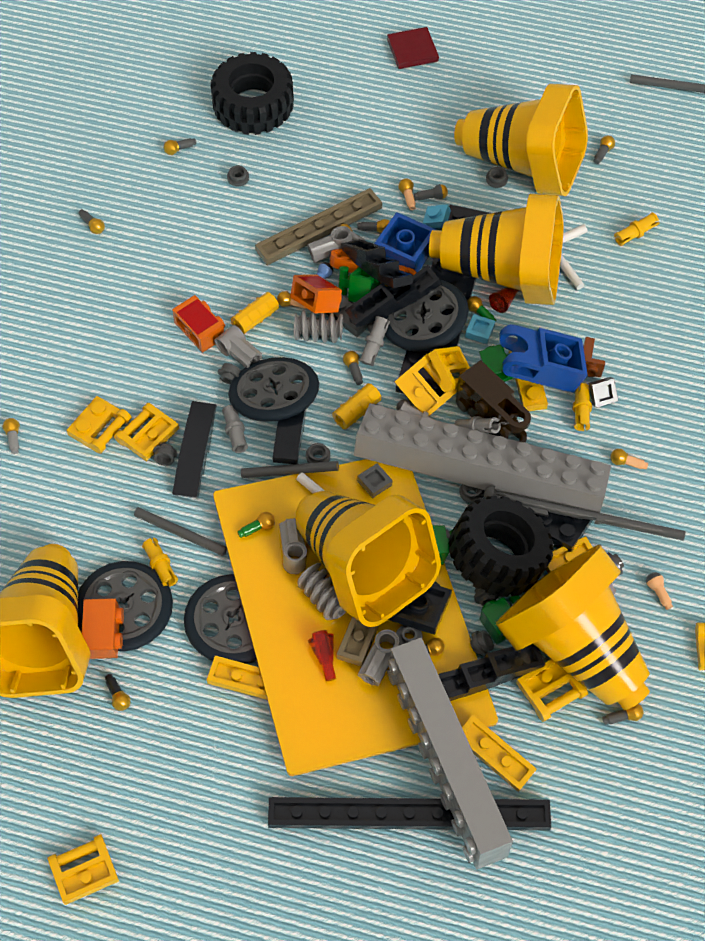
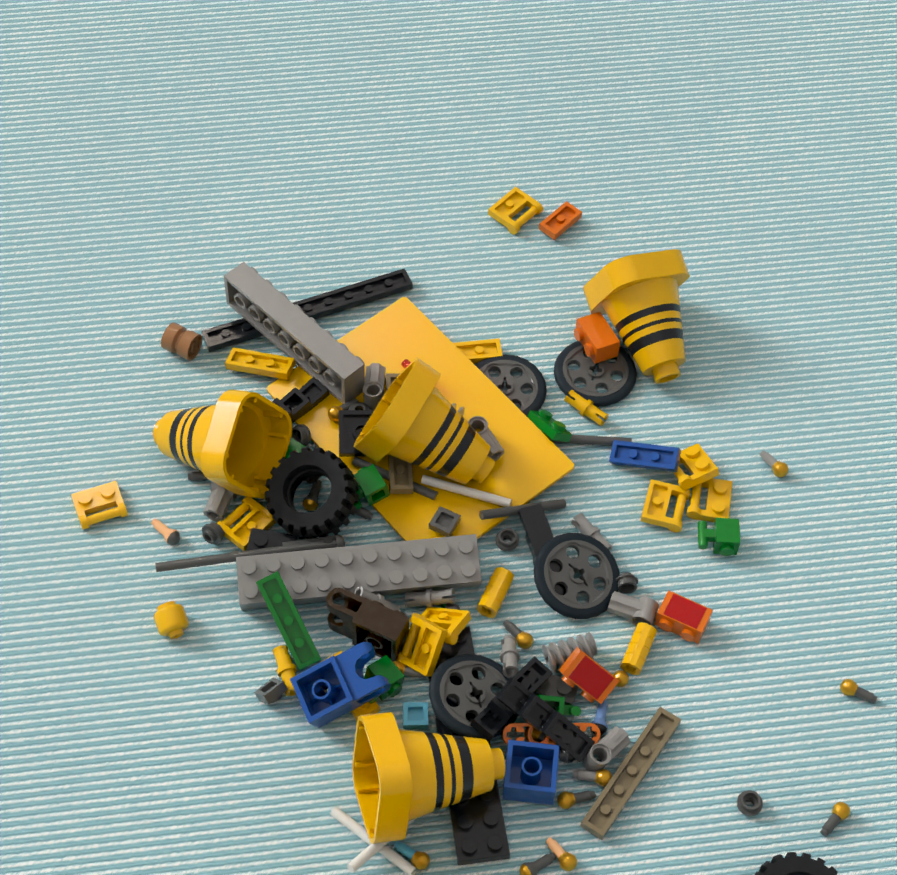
camera: 155 degrees right, 5 degrees down
(37, 828) = (560, 220): none -> orange plate
(90, 451) = (698, 465): none -> yellow plate
(113, 378) = (724, 536): none -> green brick
(120, 700) = (555, 310): piece -> none
(136, 478) = (645, 456): none -> blue plate
(164, 454) = (637, 491): dark grey plate -> none
(194, 449) = (614, 502): black slope -> none
(213, 547) = (551, 427): none -> green plate
(264, 521) = (518, 453): piece -> none
(436, 215) = (516, 832): medium azure plate -> none
(569, 433) = (288, 620): none -> green plate
(580, 819) = (180, 340): none -> medium nougat wheel
(594, 366) = (295, 713): dark orange bracket -> none
(620, 457) = (234, 636): piece -> none
(679, 488) = (171, 619): none -> yellow head

